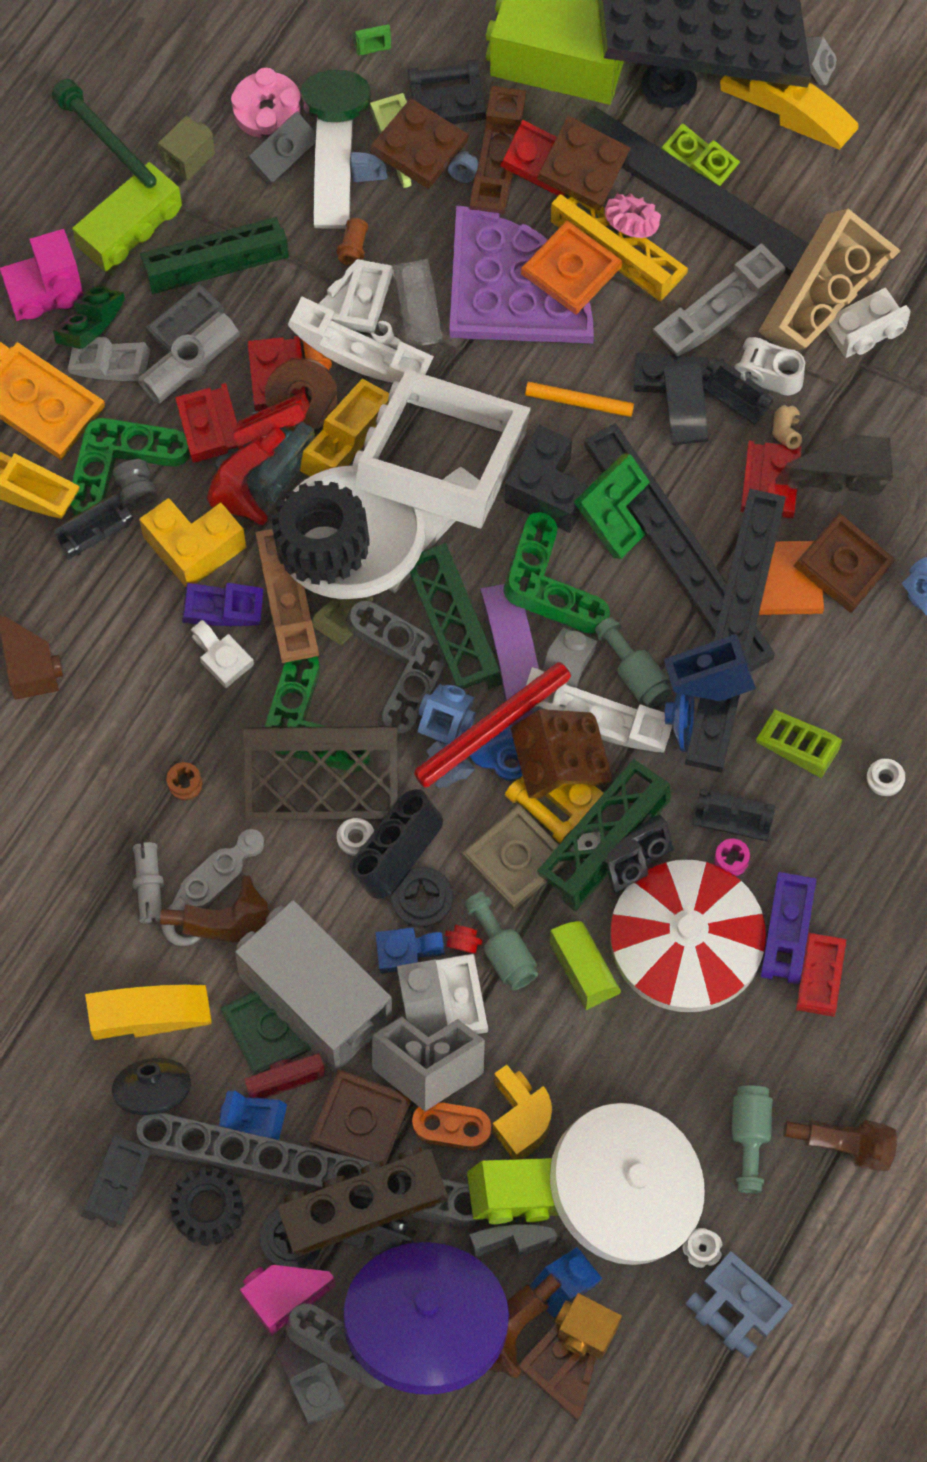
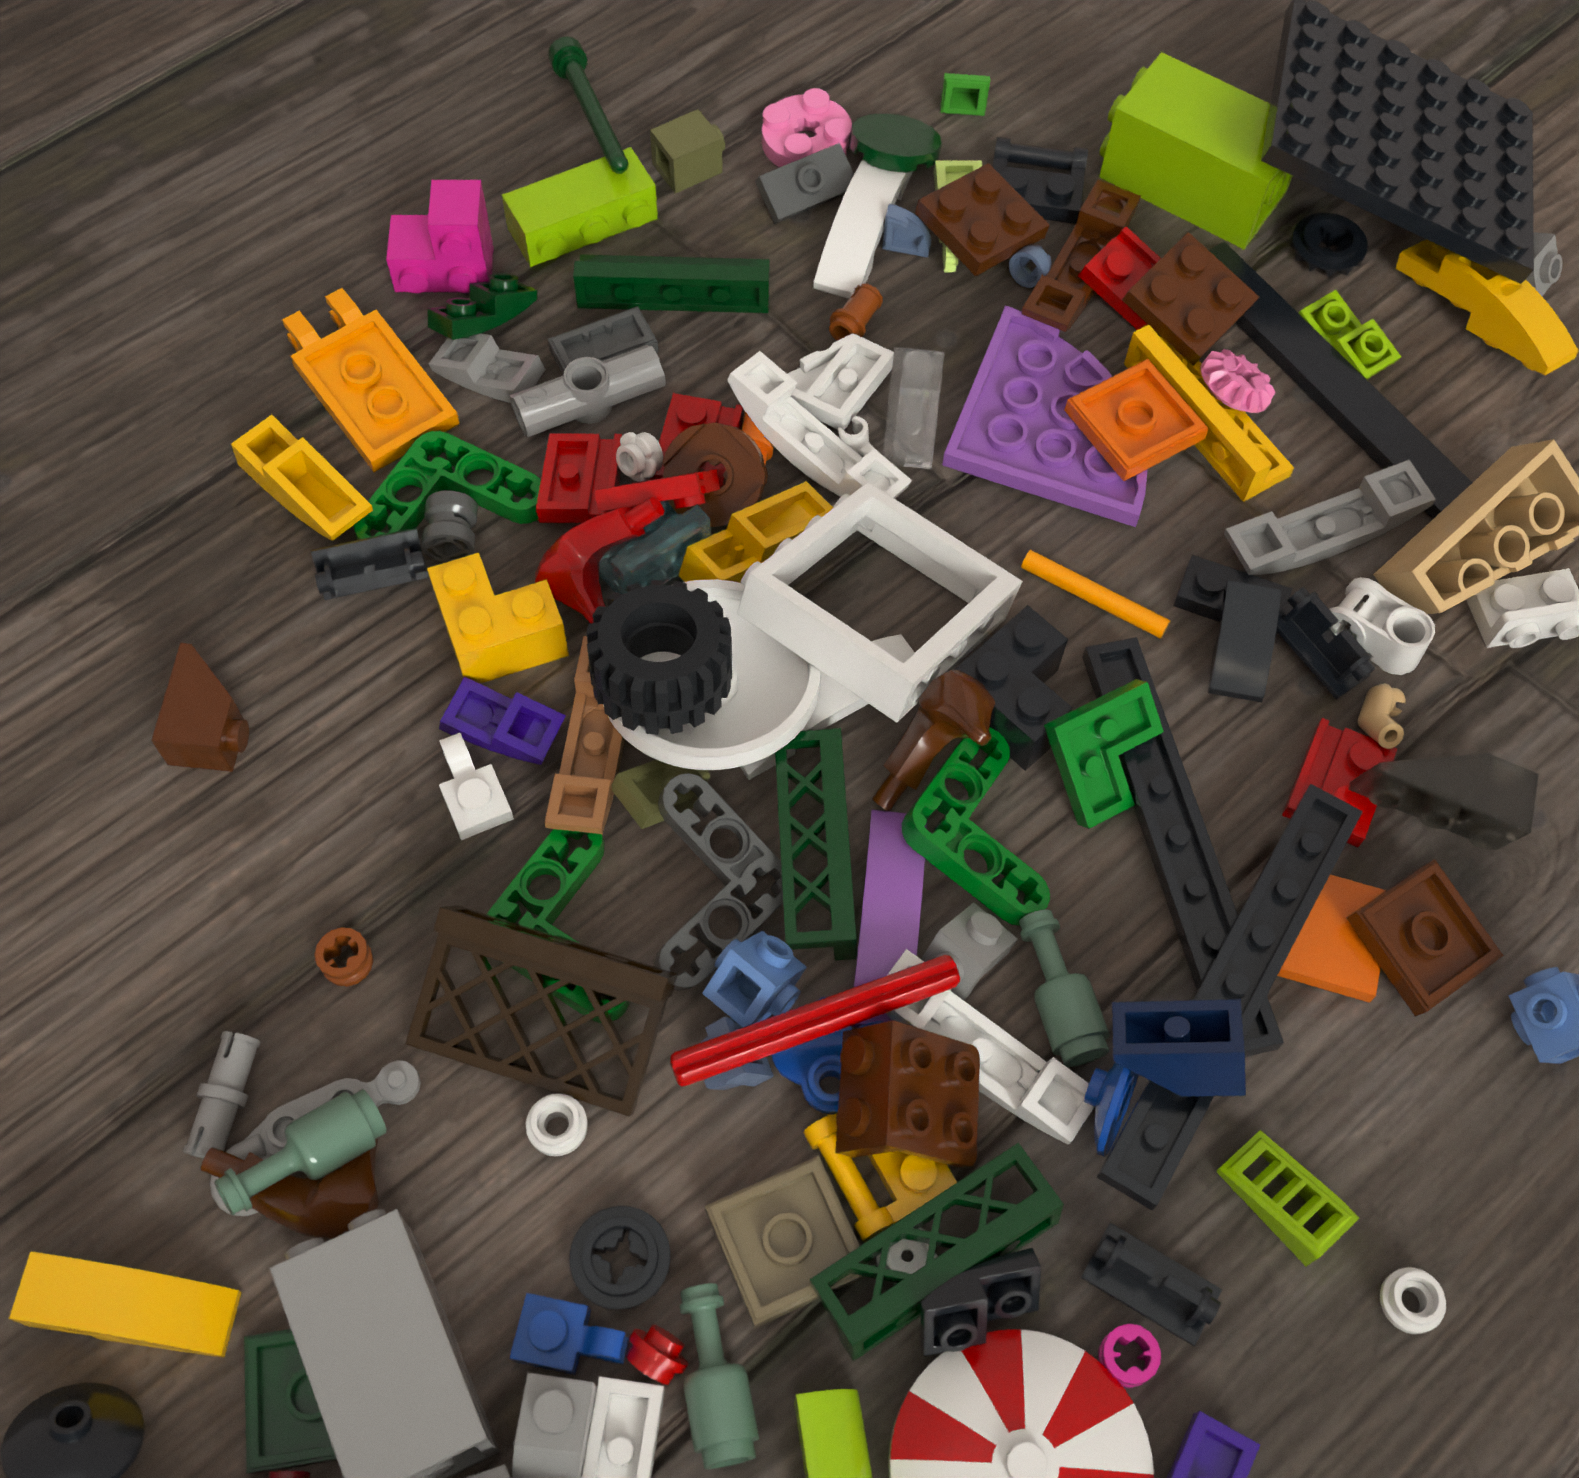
camera: 15 degrees right, 5 degrees down
(223, 888) = (314, 1145): none -> sand green piece
(245, 396) = (639, 455): none -> white plate
(396, 844) = (608, 1160): black beam -> none
(510, 509) = (948, 709): none -> reddish brown animal

